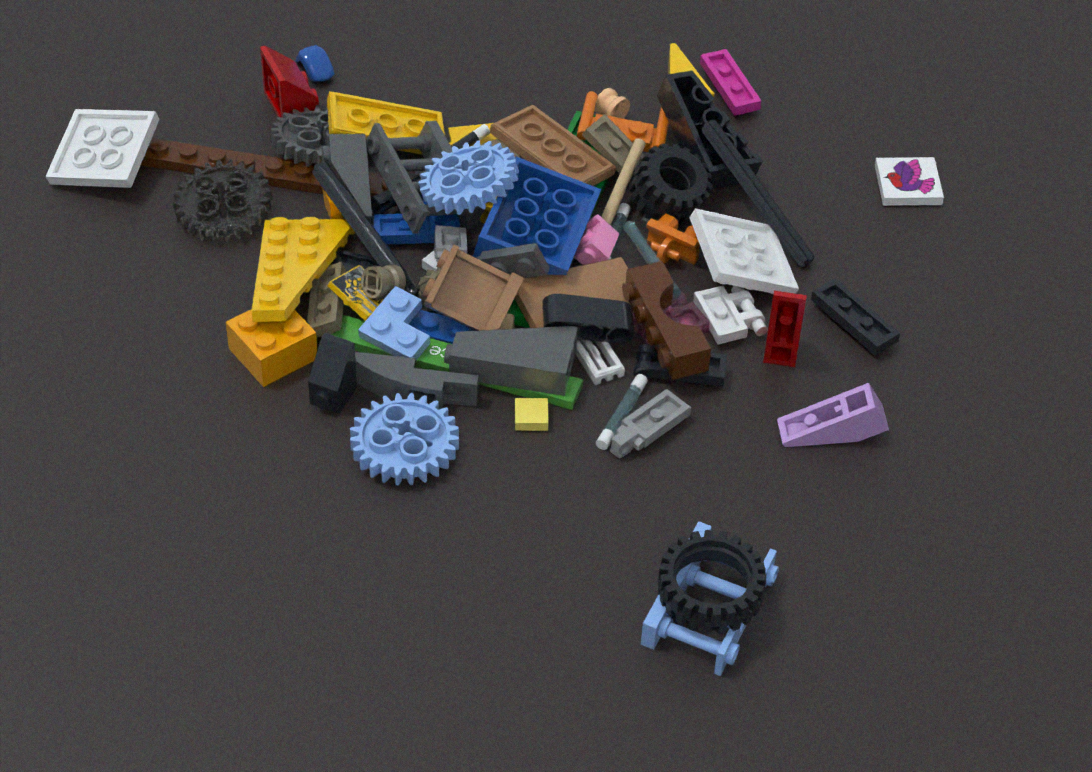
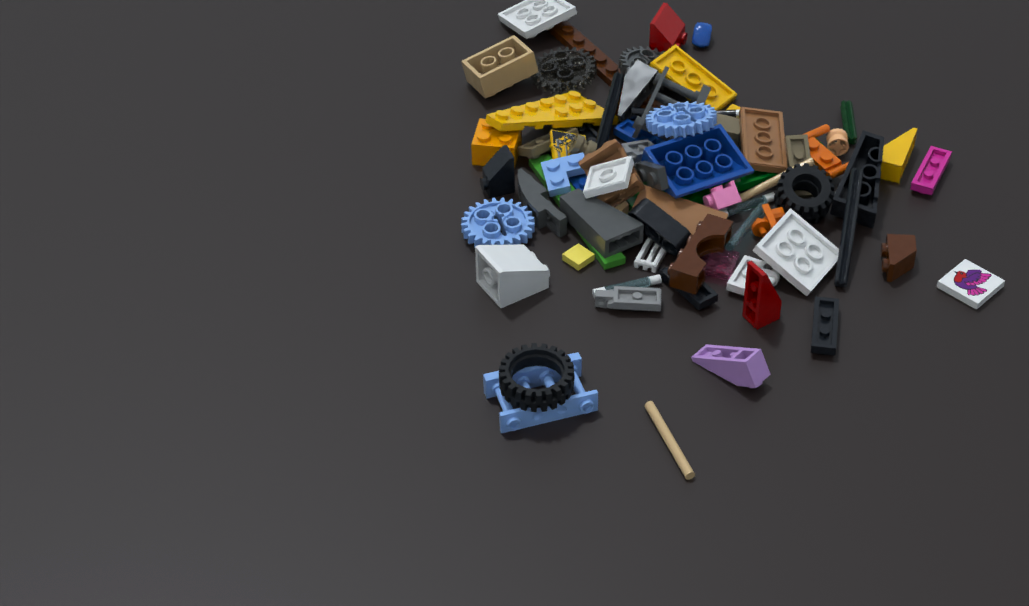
camera: 50 degrees right, 5 degrees down
(155, 241) = (500, 66): none -> tan brick
(484, 296) = (608, 177): none -> white tile
(501, 487) = (509, 272): none -> white slope
(584, 73) = (849, 121): none -> dark green axle
(820, 193) = (898, 254): none -> reddish brown slope
(880, 548) = (669, 440): none -> tan bar

